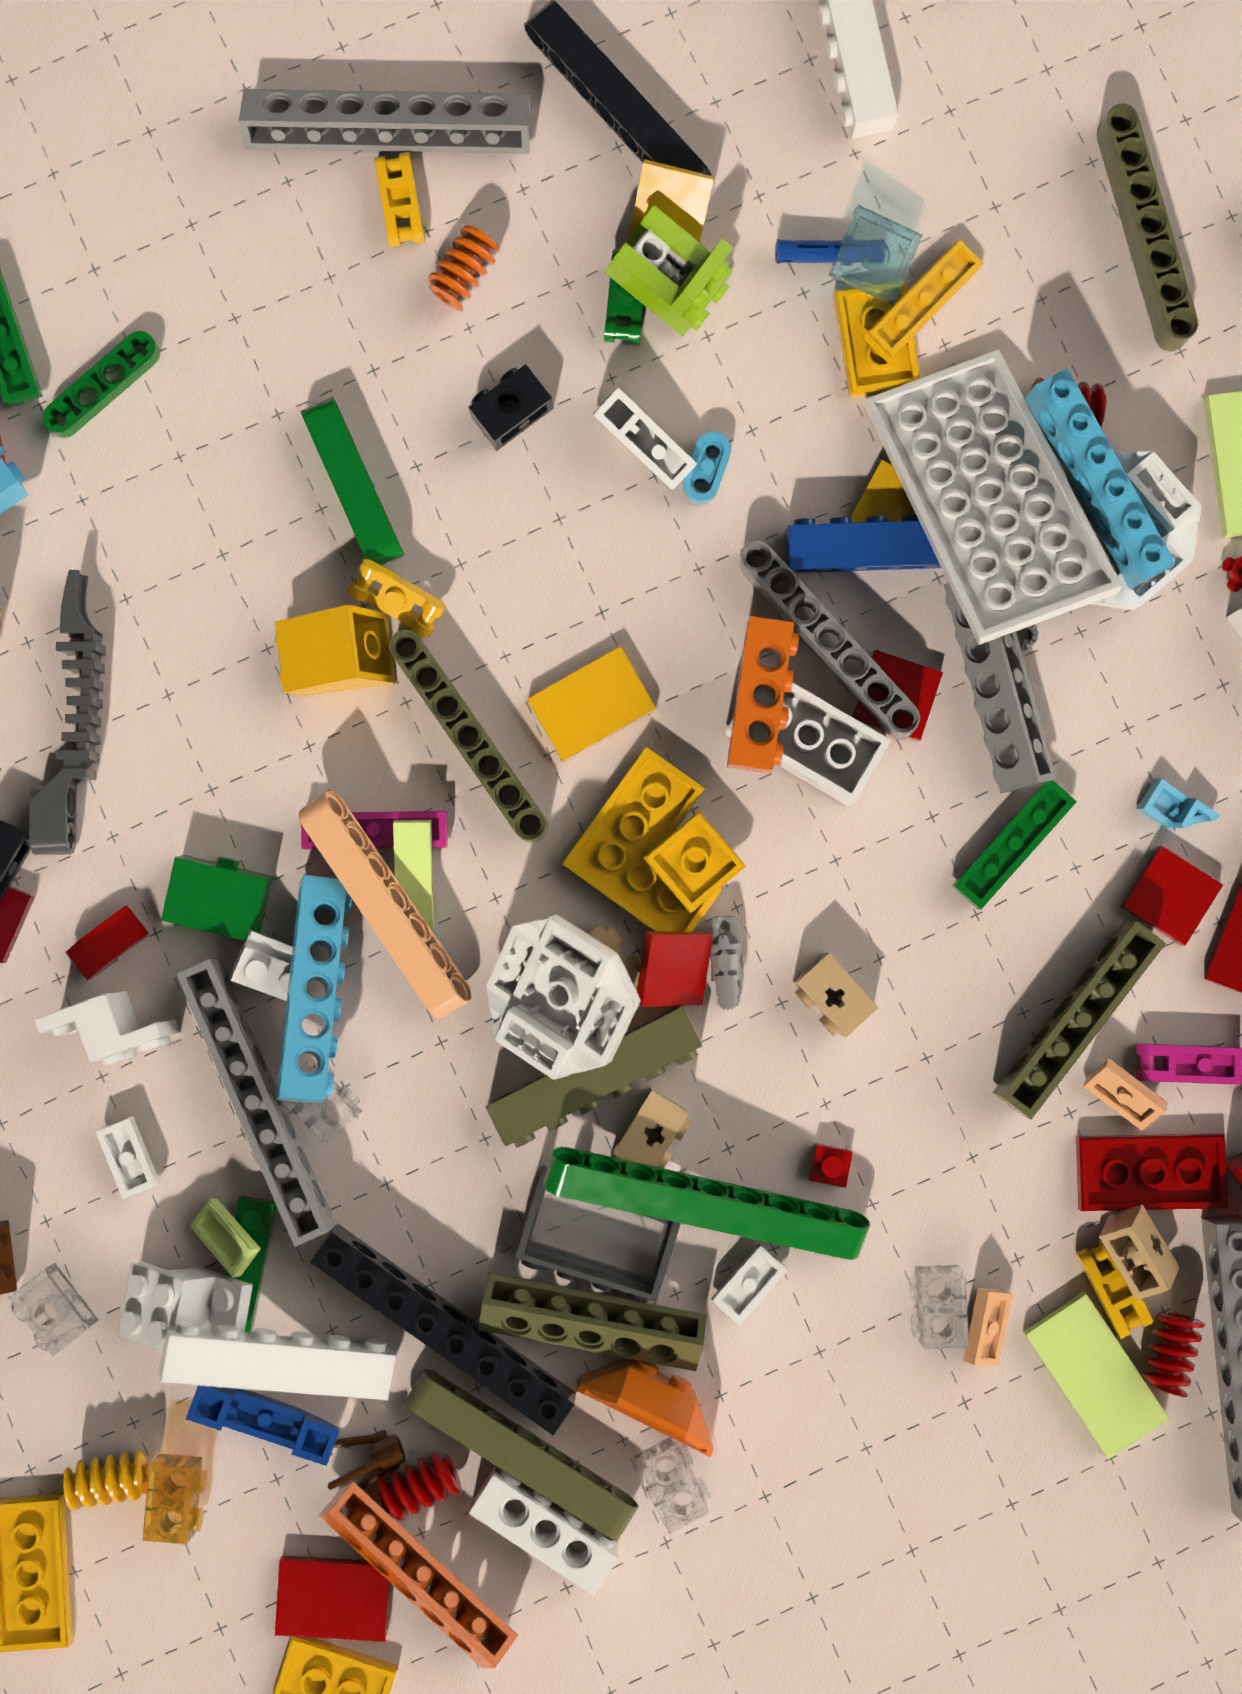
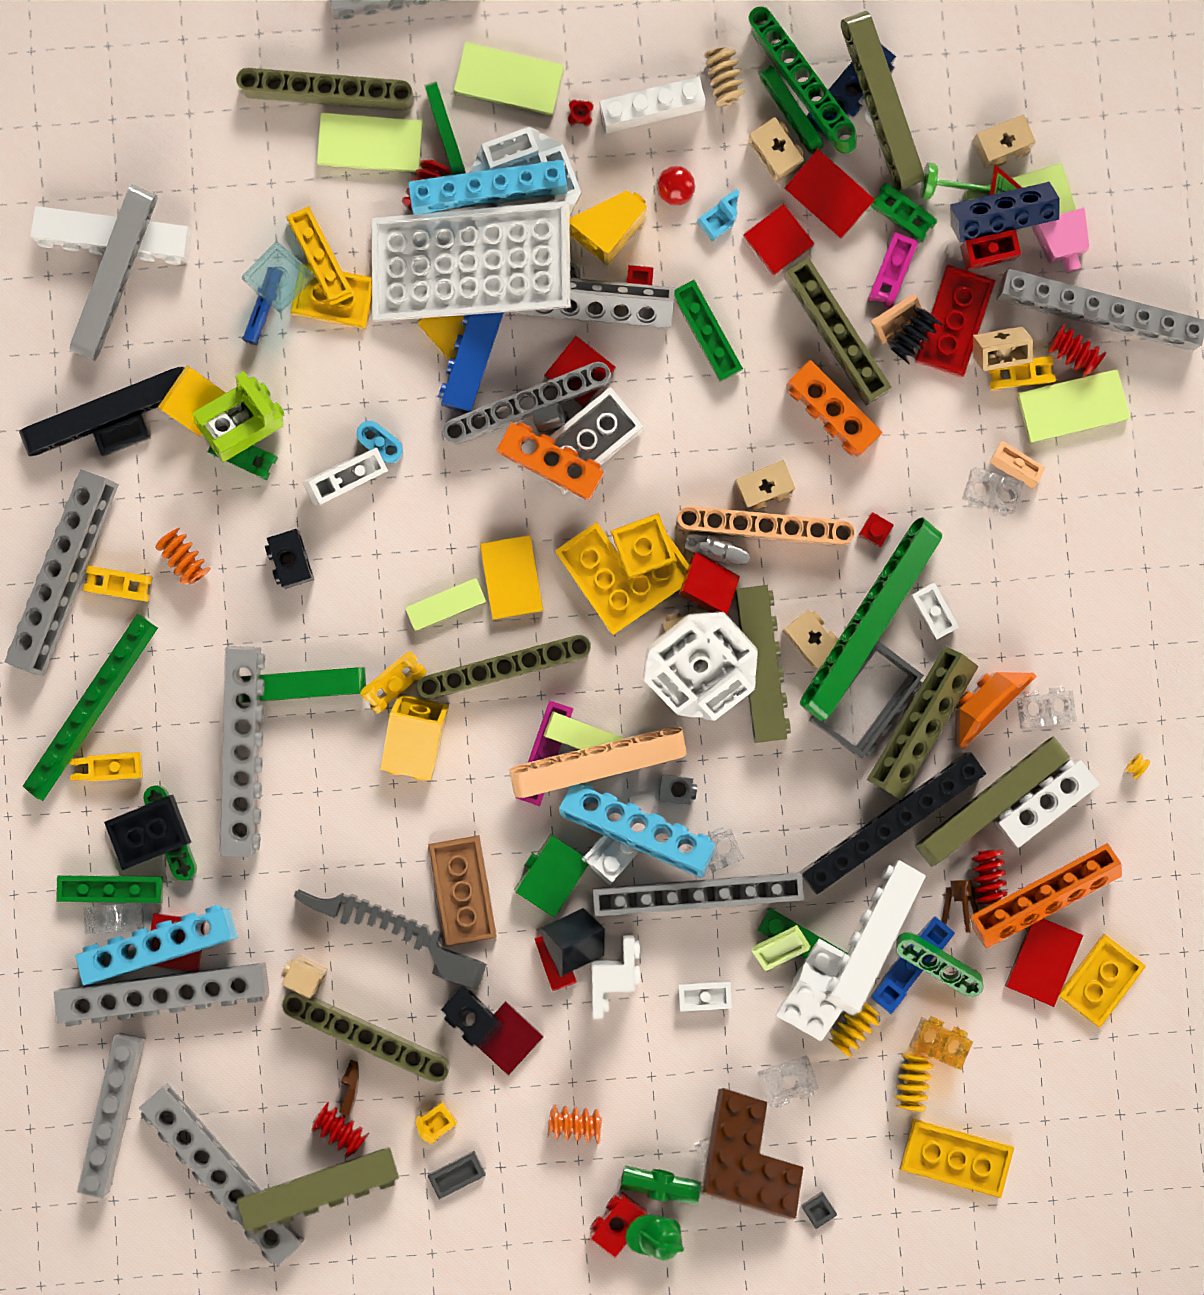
camera: 80 degrees left, 0 degrees up
(90, 354) = (147, 832): none -> black tile
(116, 464) = (231, 841): none -> light grey brick
(139, 957) = (574, 941): none -> black slope
(145, 1372) = (854, 1029): none -> yellow piece
(157, 788) = (462, 890): none -> medium nougat tile
(158, 275) = (109, 767): none -> yellow hinge
(226, 222) = (90, 707): none -> green plate
(269, 1502) = (942, 962): none -> green beam
(375, 1010) = (665, 789): none -> dark grey brick
(524, 631) = (445, 604): none -> yellowish green tile
(595, 135) = (121, 434): none -> black tile
(639, 1636) = (1137, 766): none -> yellow bush
(790, 1031) = (777, 521): none -> light nougat beam
(803, 38) = (113, 272): none -> light grey beam
(820, 675) = (550, 417): none -> dark grey piece
(1005, 1007) = (812, 376): none -> orange brick
(1055, 728) = (640, 275): none -> red plate
(1097, 312) = (369, 142): none -> yellowish green tile
(1108, 661) = (609, 225): none -> yellow slope
(1114, 1123) = (913, 334): none -> black piece
(1156, 399) = (444, 128): none -> green beam
(1193, 733) = (675, 185): none -> red hair

